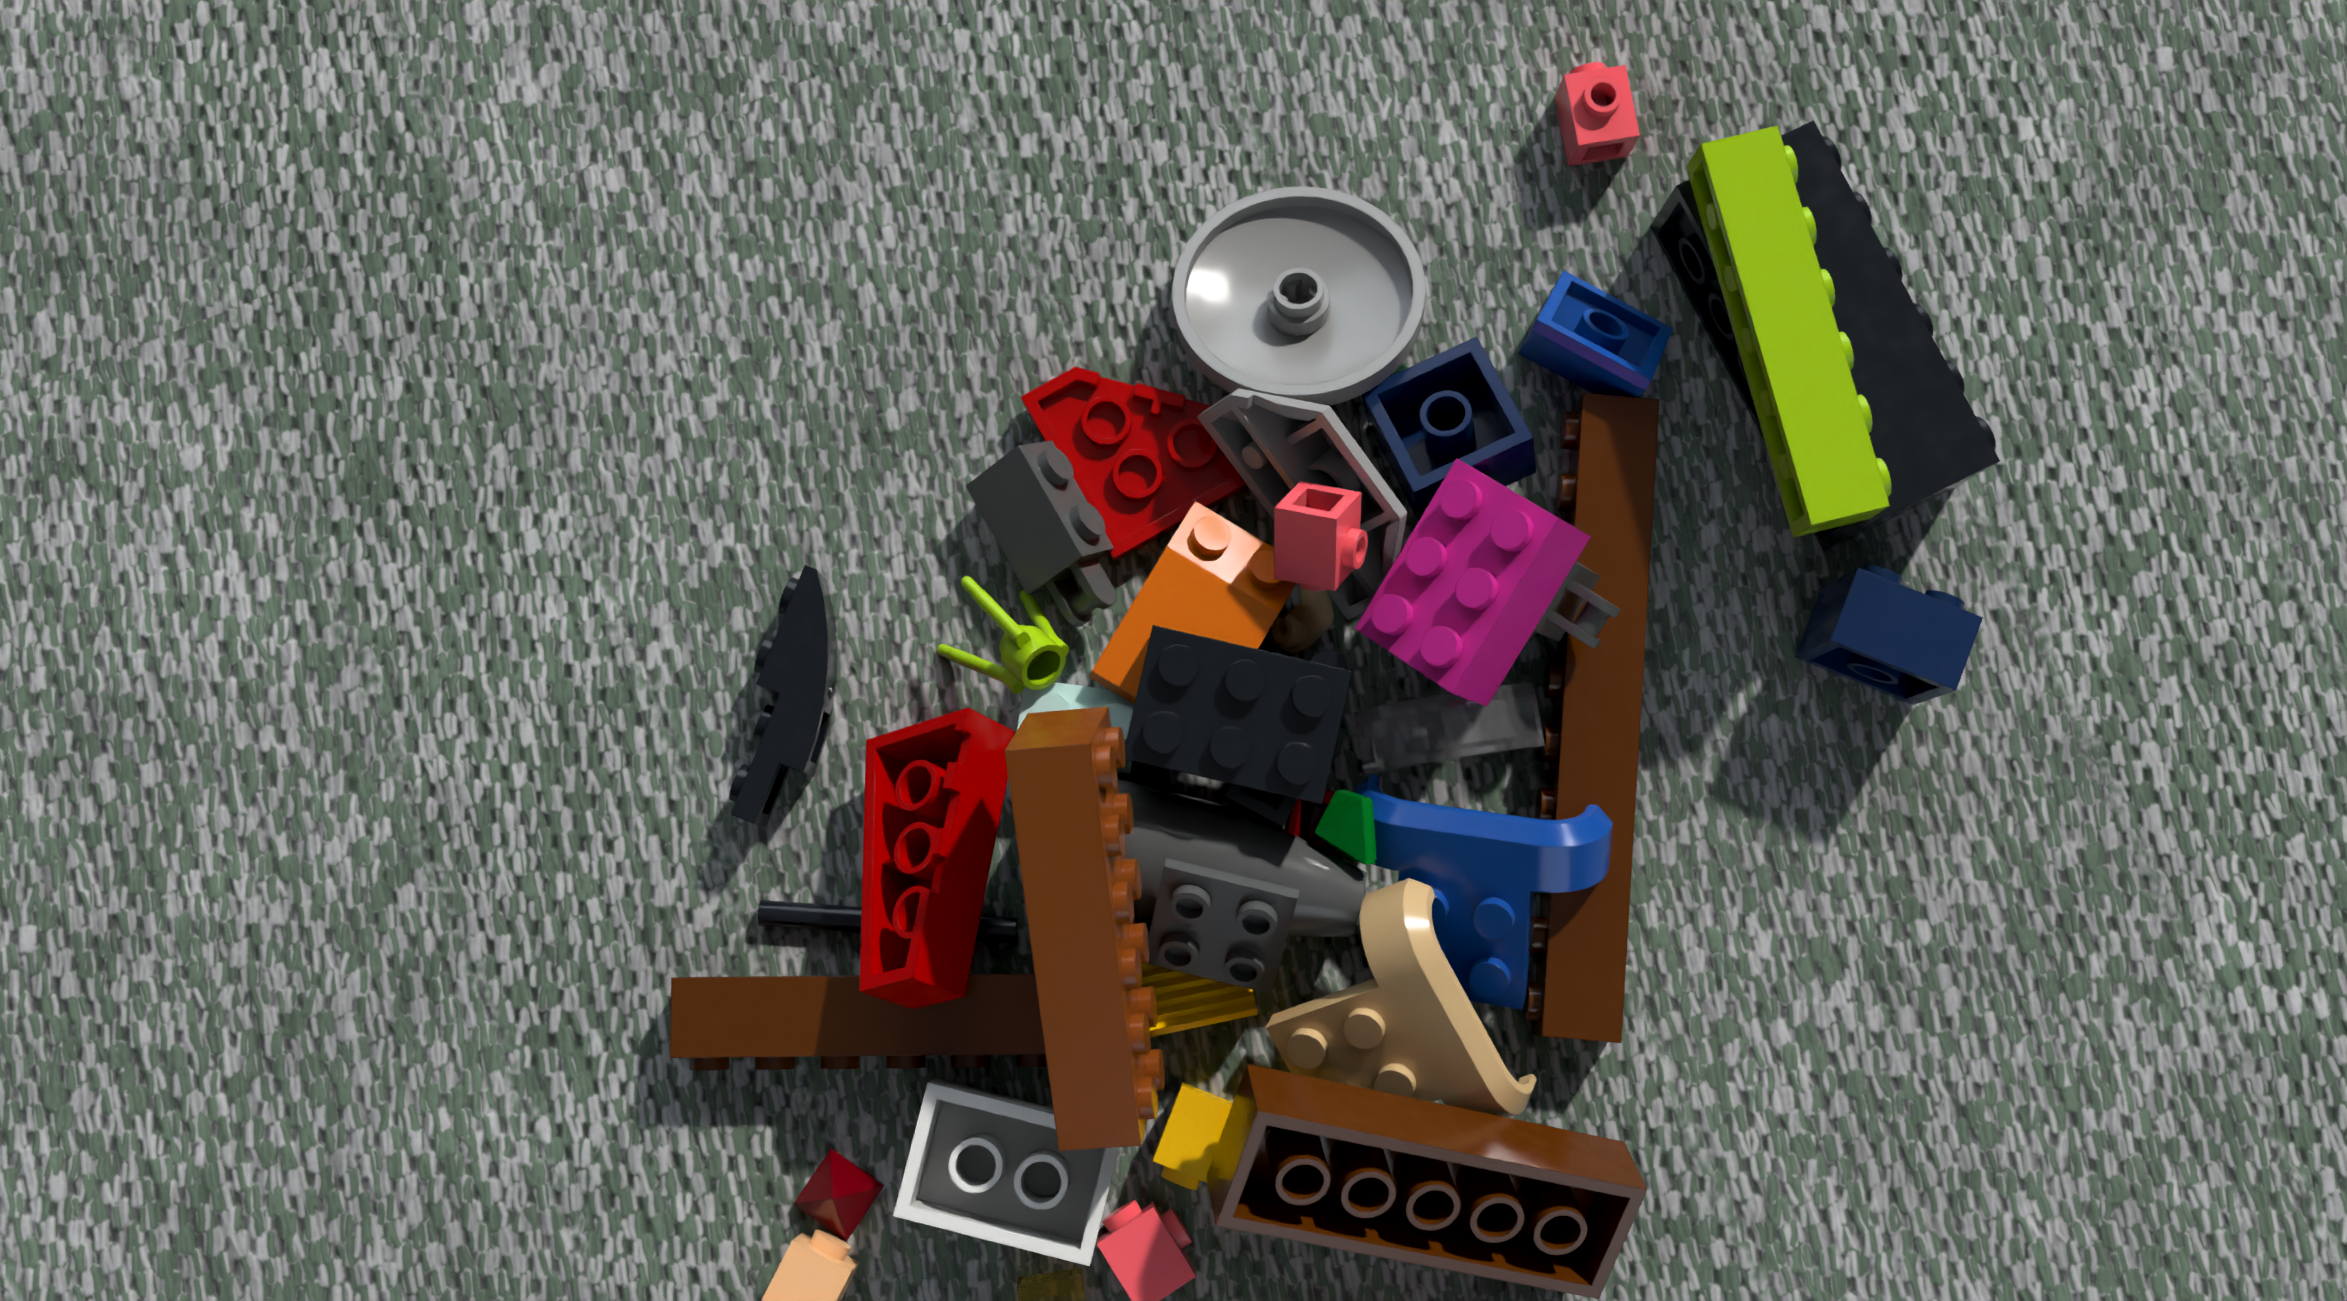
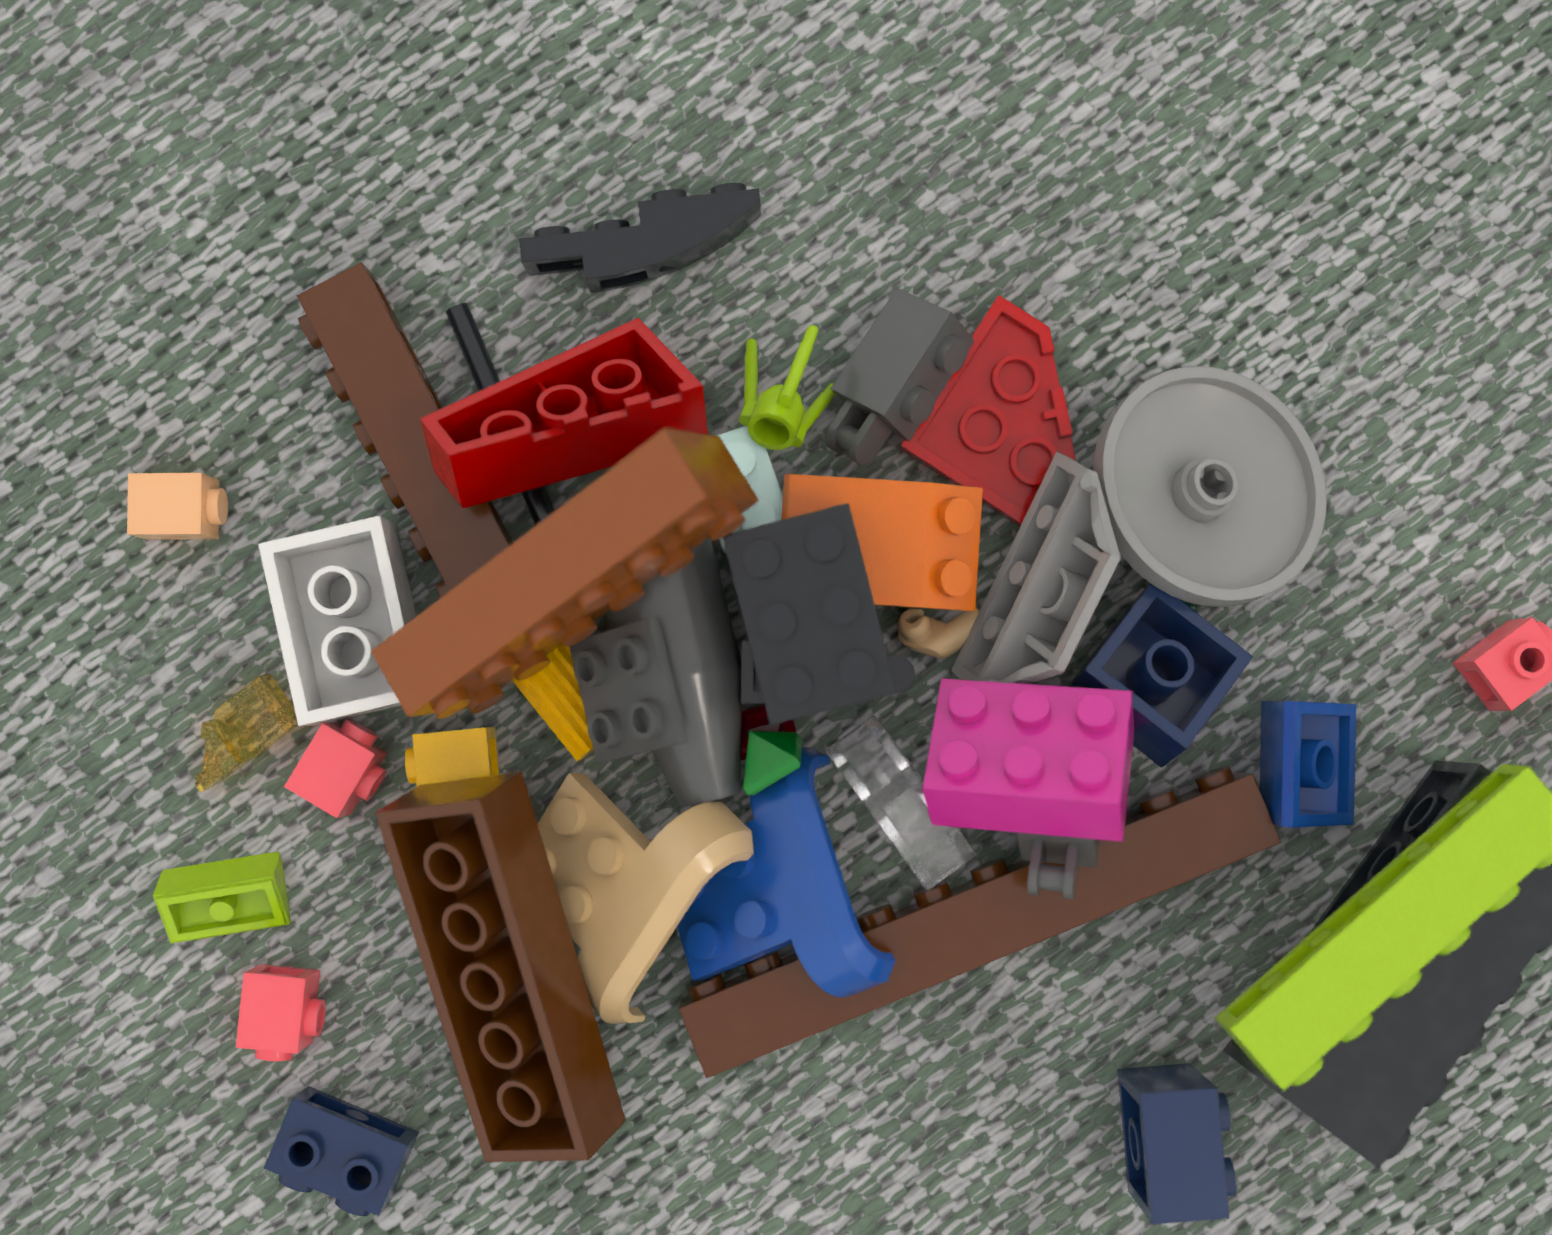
camera: 65 degrees right, 5 degrees up
(839, 1194) = (263, 493): dark red slope -> none
(1318, 536) = (1003, 606): coral brick -> none

